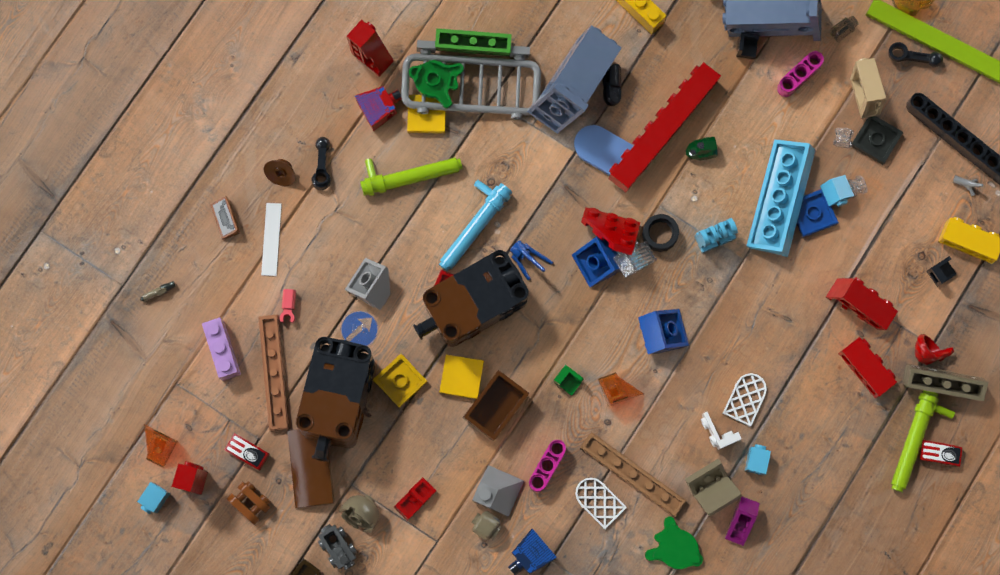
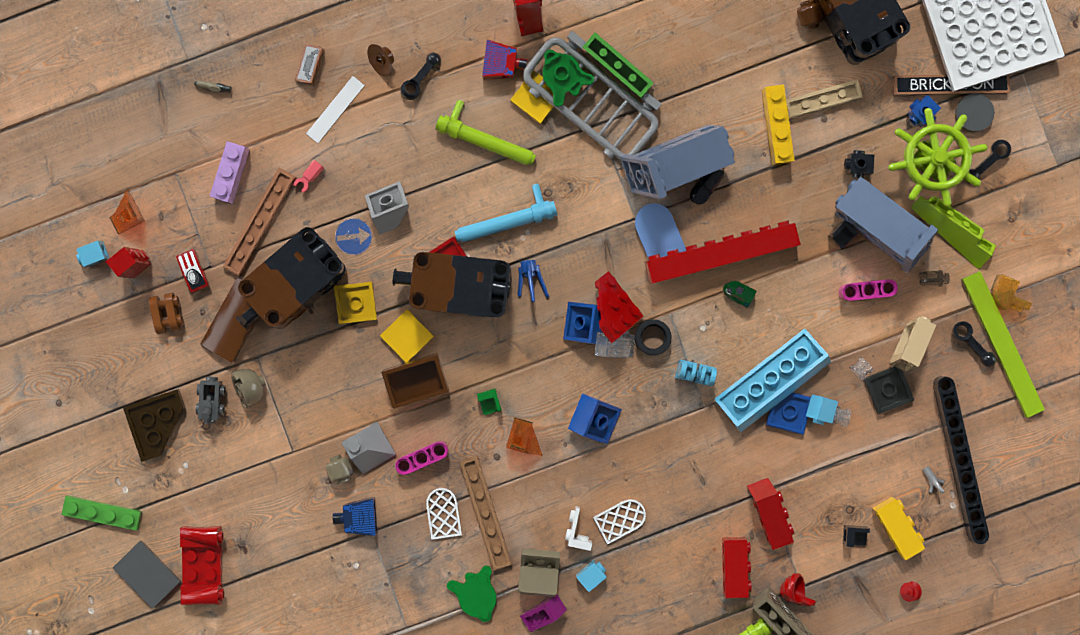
camera: 30 degrees right, 10 degrees up
(415, 498) = (299, 406): red slope -> none

